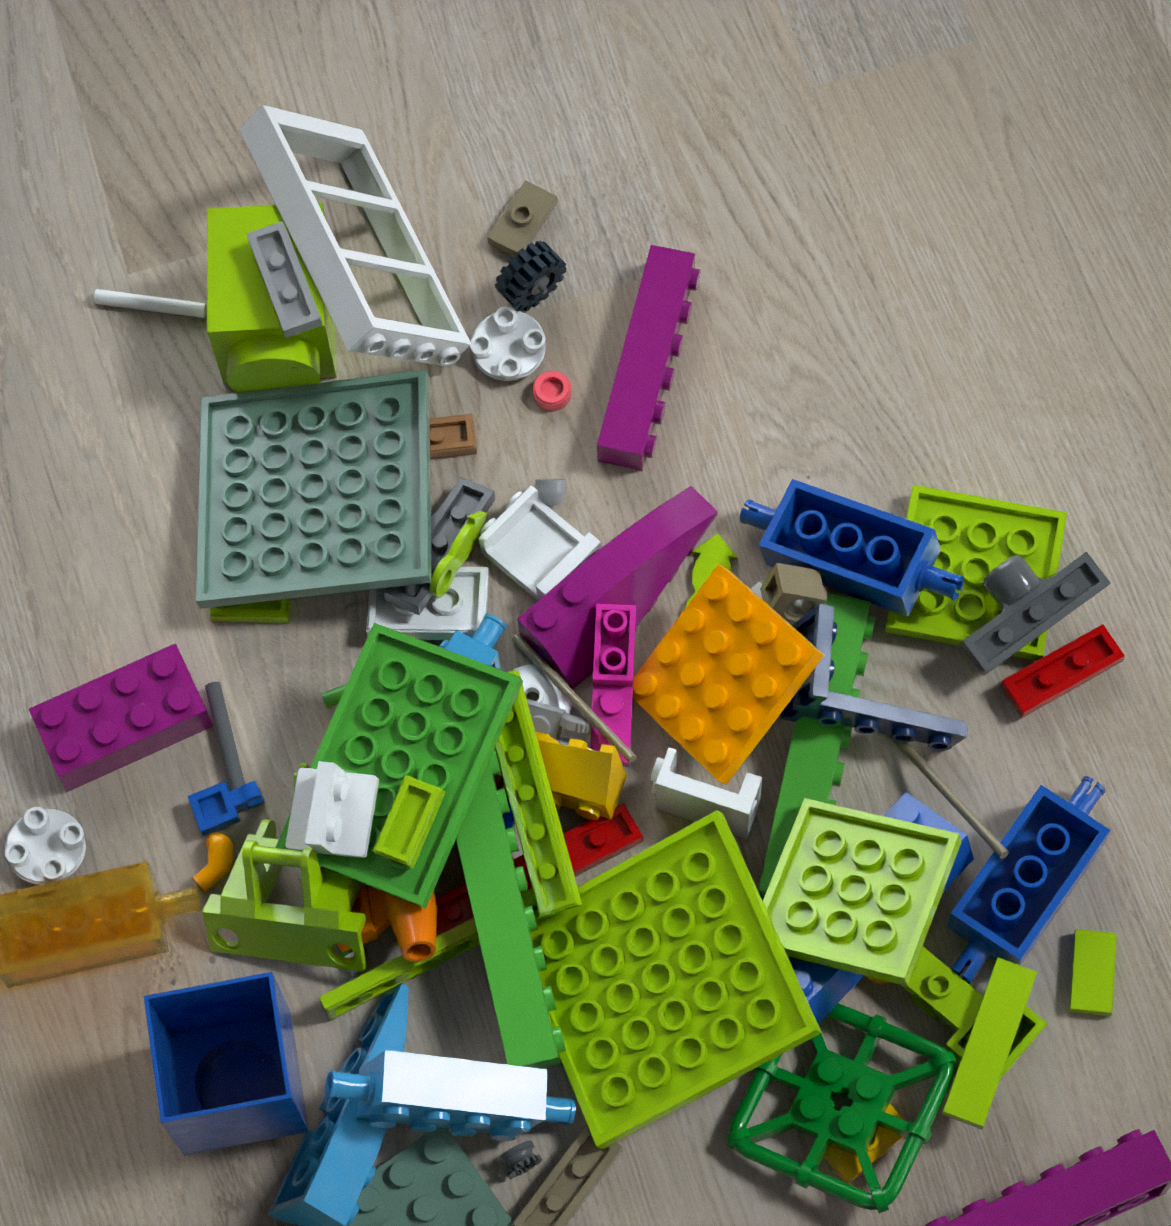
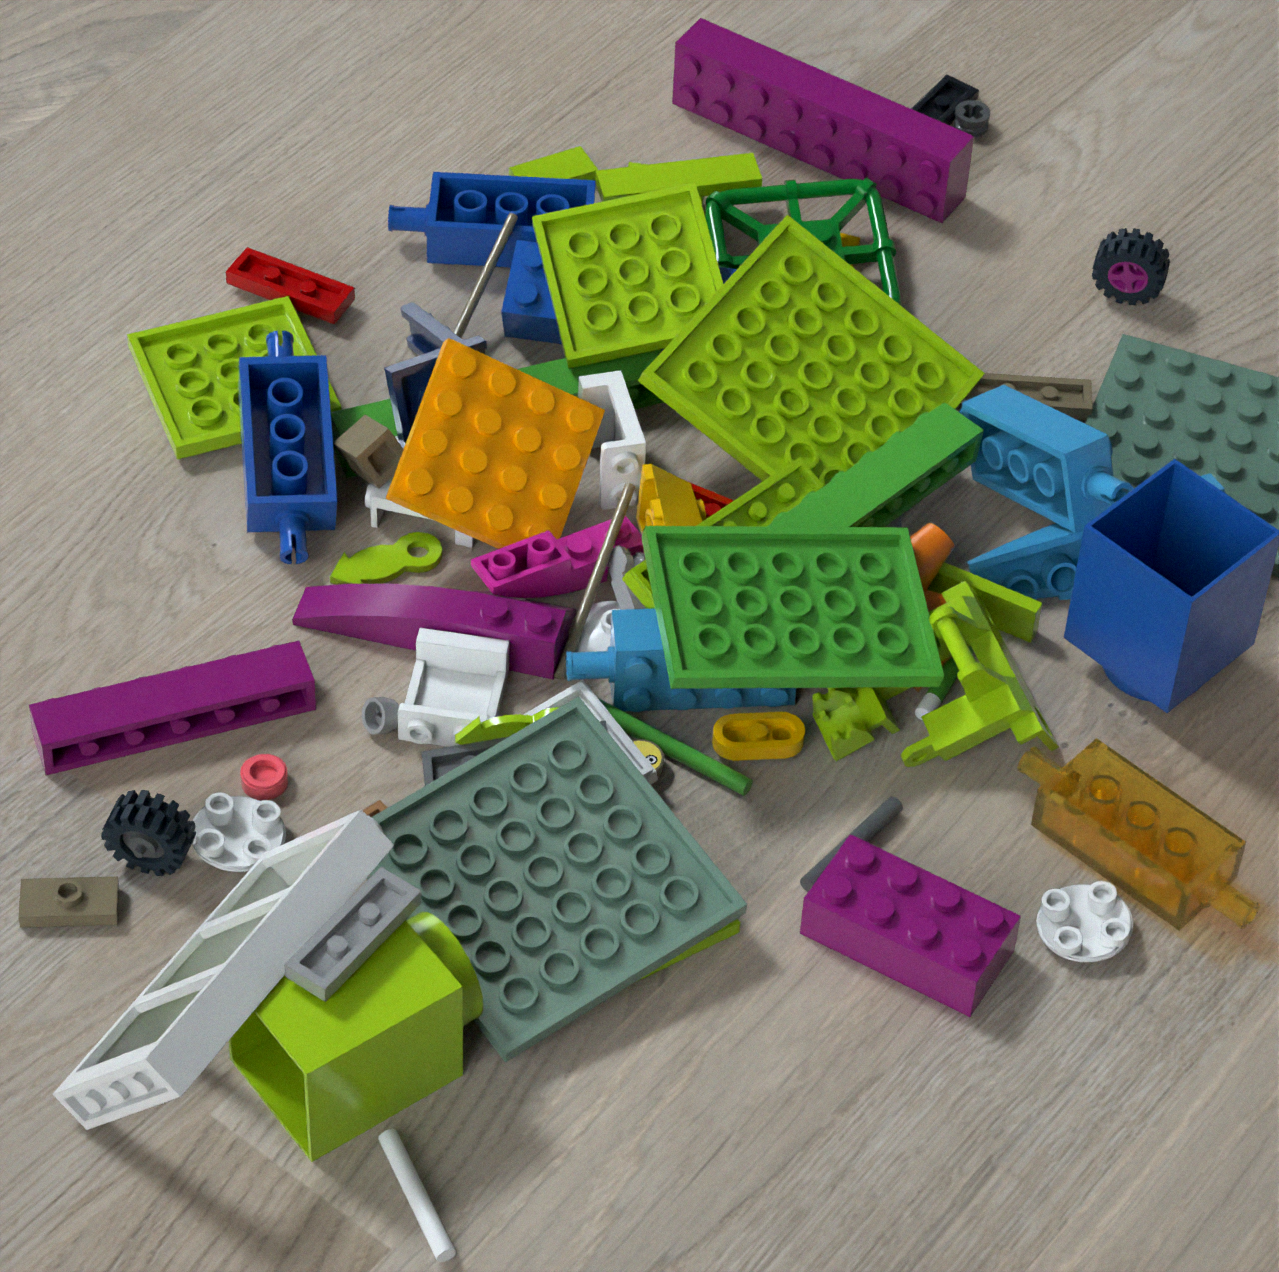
camera: 130 degrees left, 20 degrees down
(219, 807) = (921, 803): blue plate -> none
(219, 861) = (980, 778): light orange arm -> none
(332, 811) = (886, 623): white bracket -> none
(409, 821) = (843, 560): lime tile -> none
(1029, 606) = (250, 307): dark grey plate -> none

